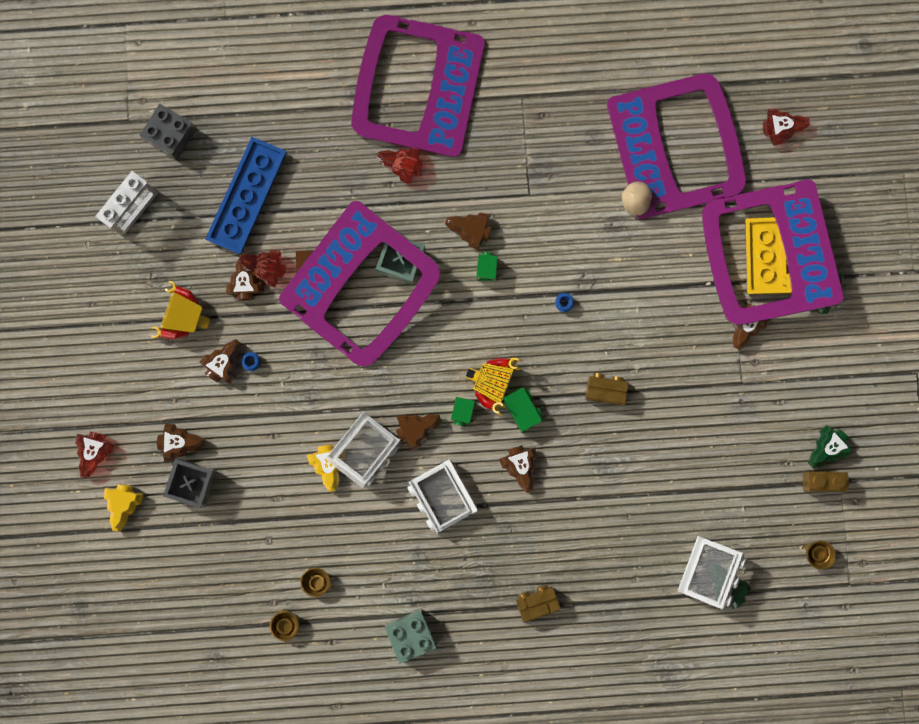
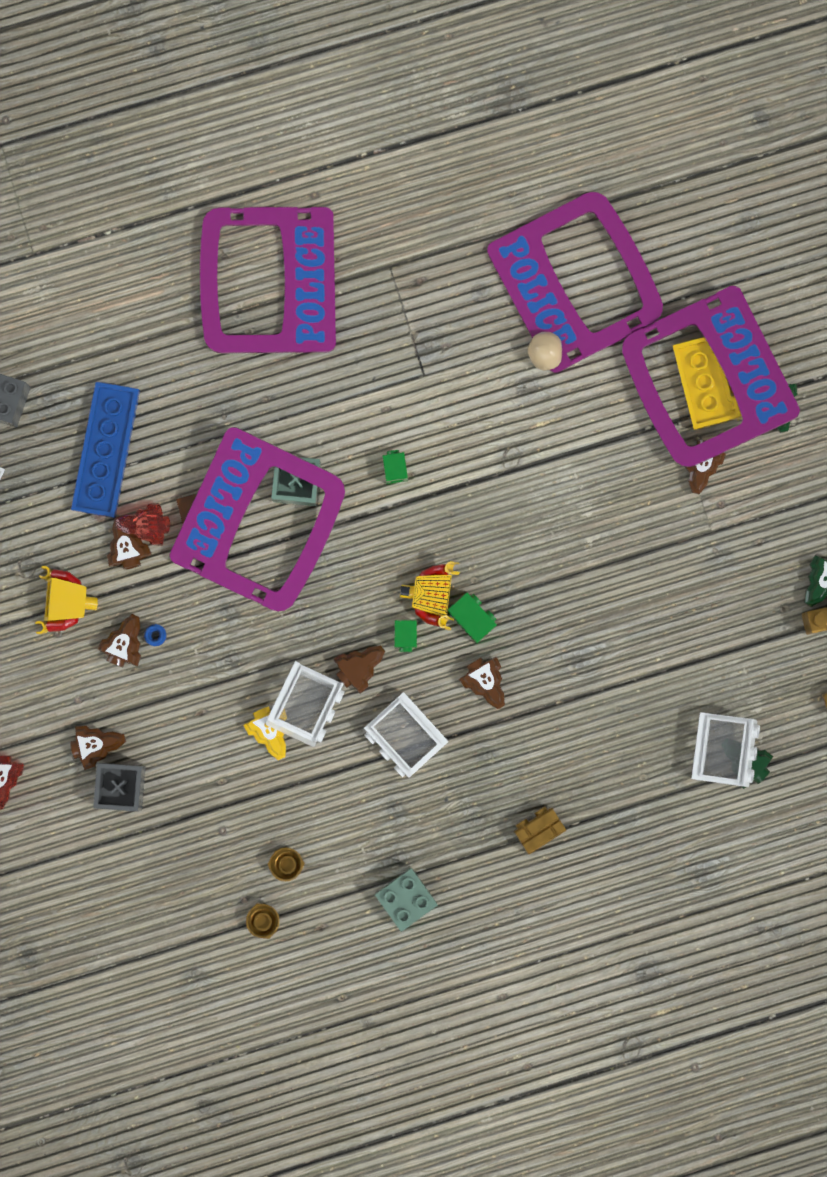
camera: 10 degrees left, 0 degrees up
(121, 504) = (47, 828): yellow rock -> none
(402, 163) = (273, 372): clear red rock -> none
(471, 228) = (367, 428): reddish brown rock -> none
(564, 296) = (494, 480): blue plate -> none
(606, 390) = (561, 574): pearl gold brick -> none
(782, 125) = (690, 231): clear red rock -> none

